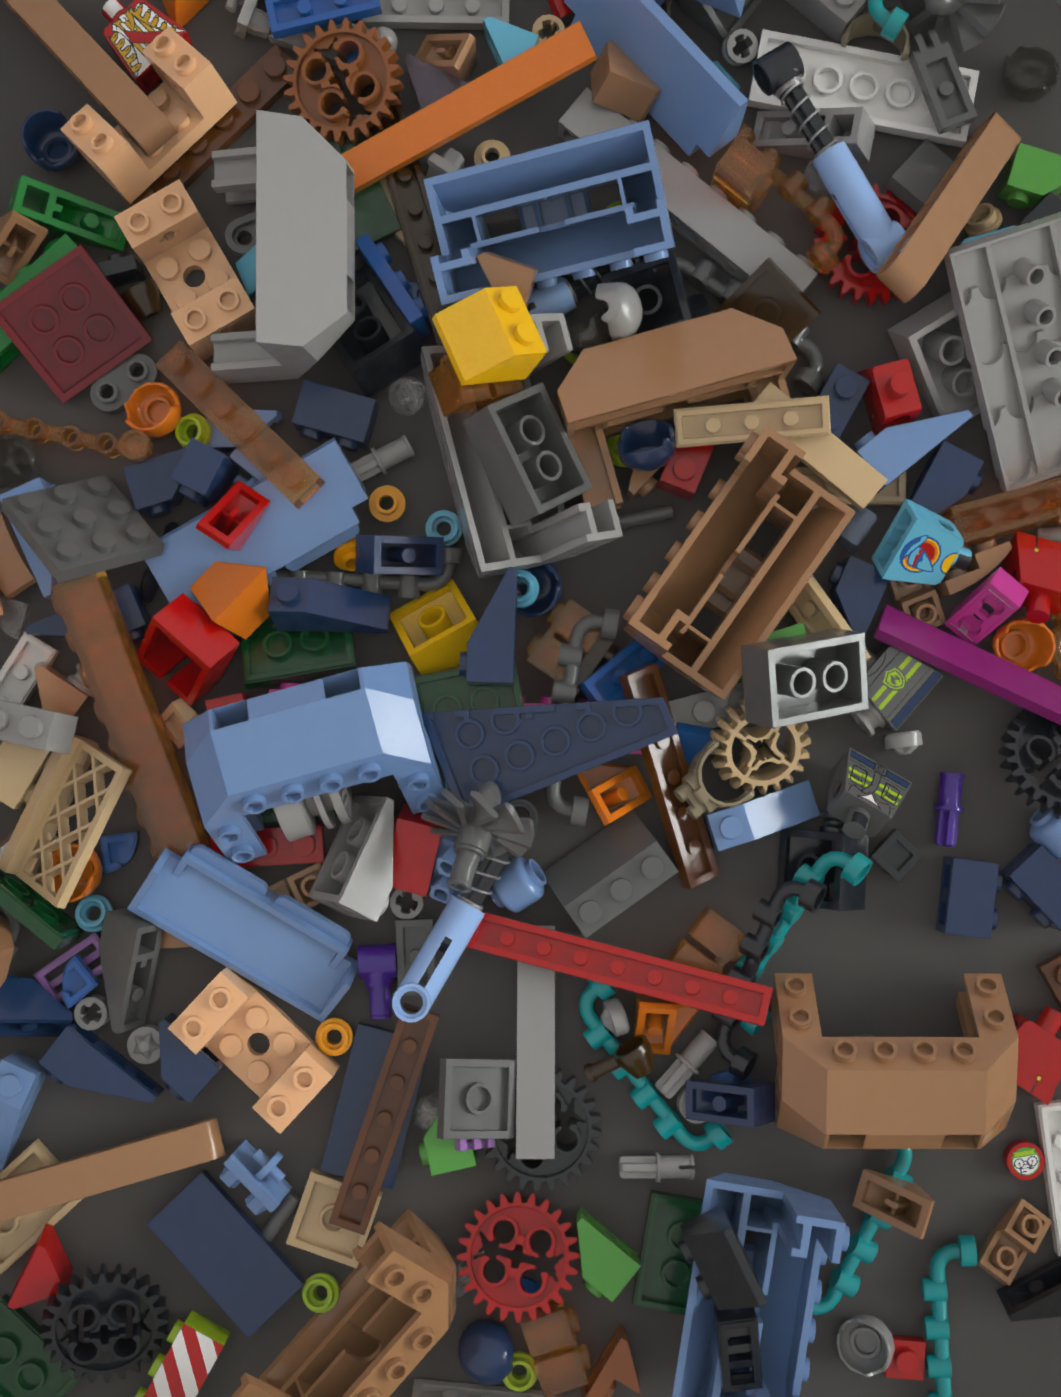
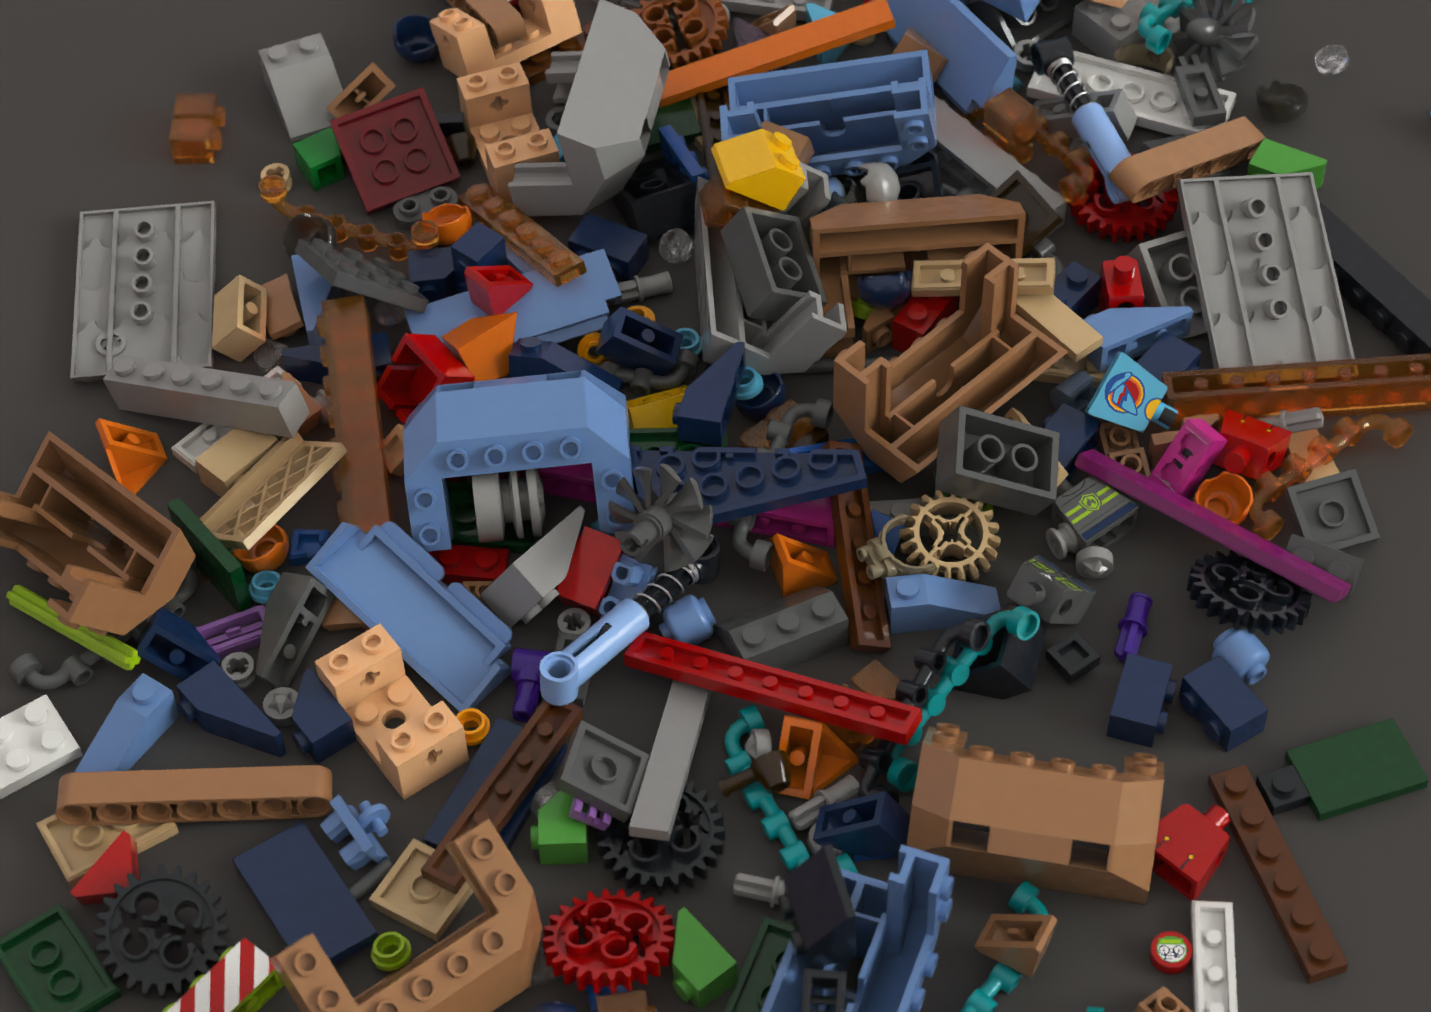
camera: 10 degrees right, 35 degrees down
(67, 213) = (411, 76): green slope -> none
(77, 981) = (234, 635): blue tile -> none

